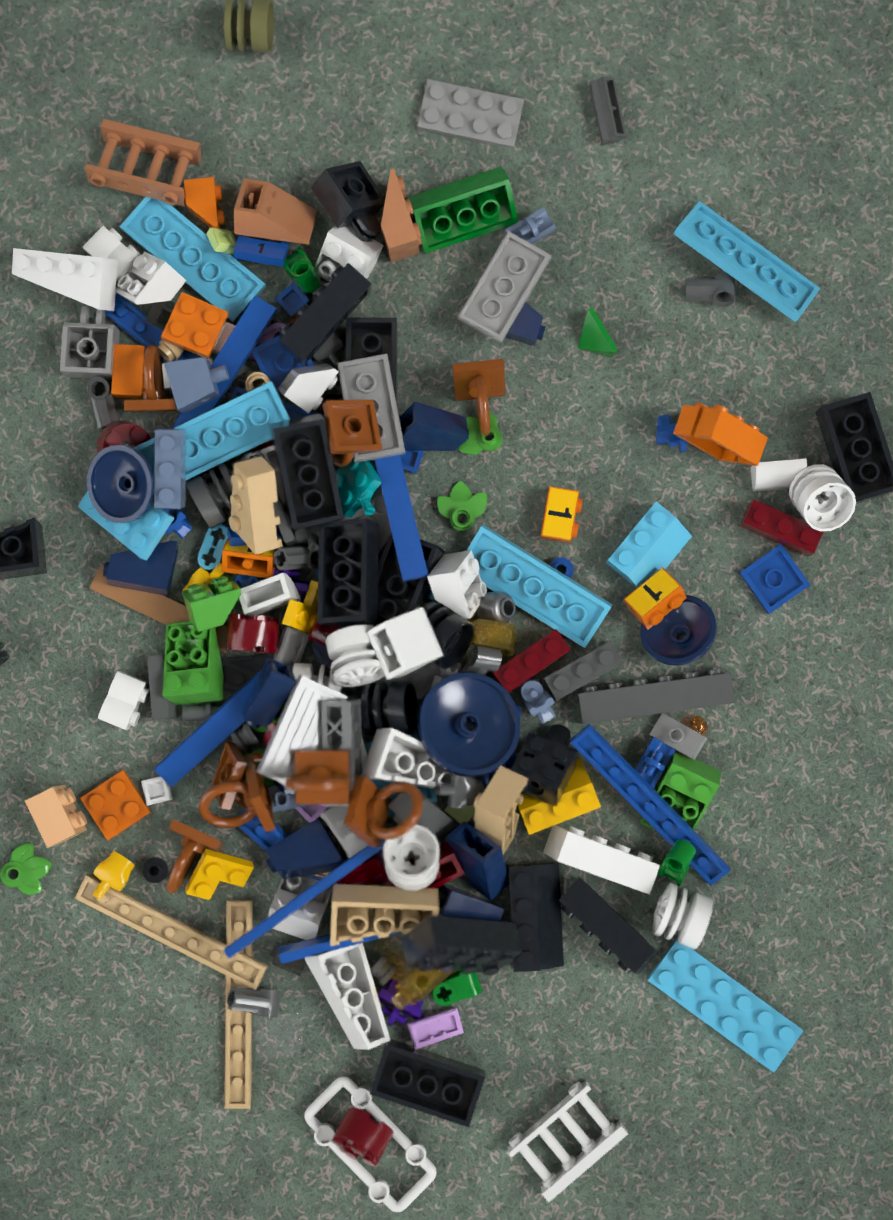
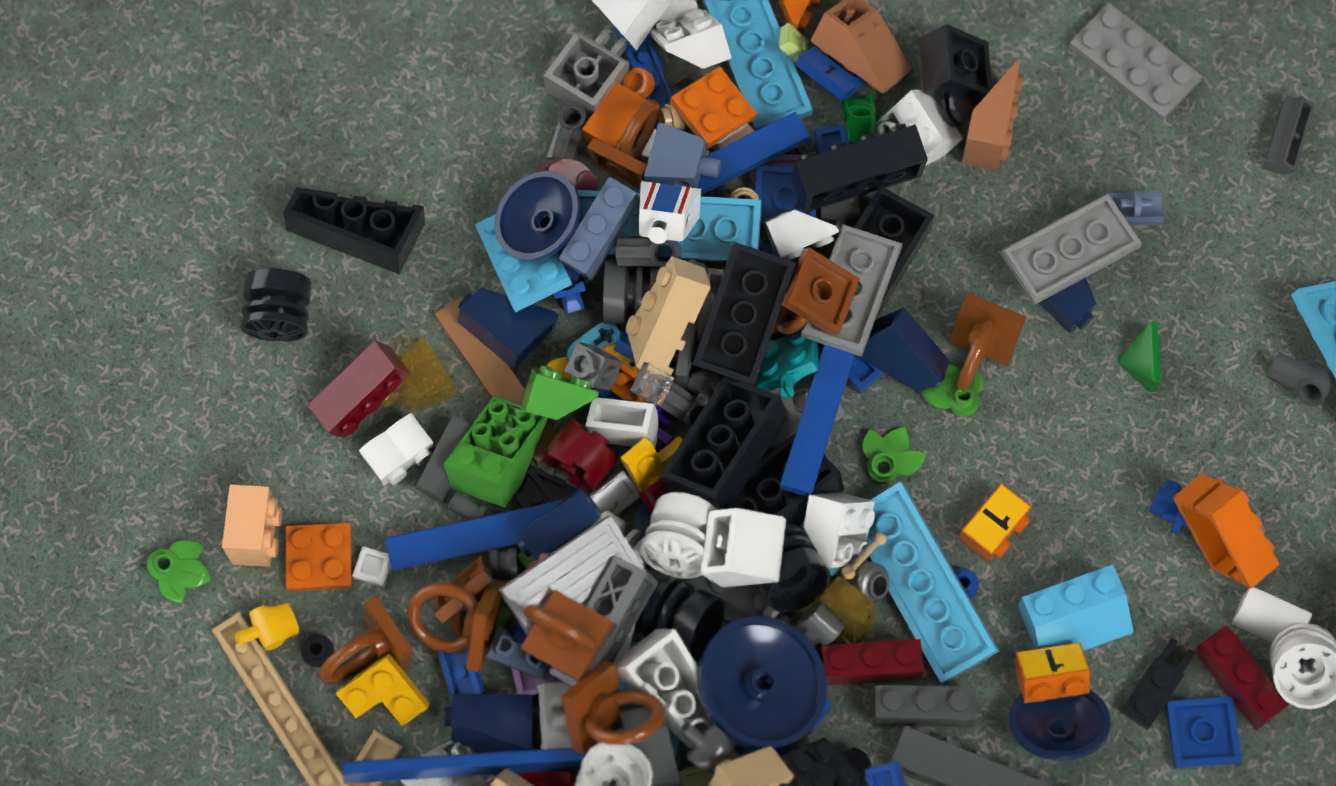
camera: 25 degrees right, 15 degrees down
(71, 676) = (359, 389): none -> brick
(105, 643) = (426, 383): none -> clear yellow torso
(130, 334) = (639, 82): none -> orange tile
(211, 430) = (667, 211): none -> white torso
(212, 466) = (643, 252): none -> dark grey piece
(225, 569) = (593, 365): none -> dark grey brick
(273, 560) = (652, 384): none -> clear plate
(464, 209) = (1071, 151): green slope -> none
(482, 611) = (849, 571): none -> tan hinge
(537, 700) = (853, 705): sand blue hips -> none
(727, 565) = (1156, 687): none -> black hinge

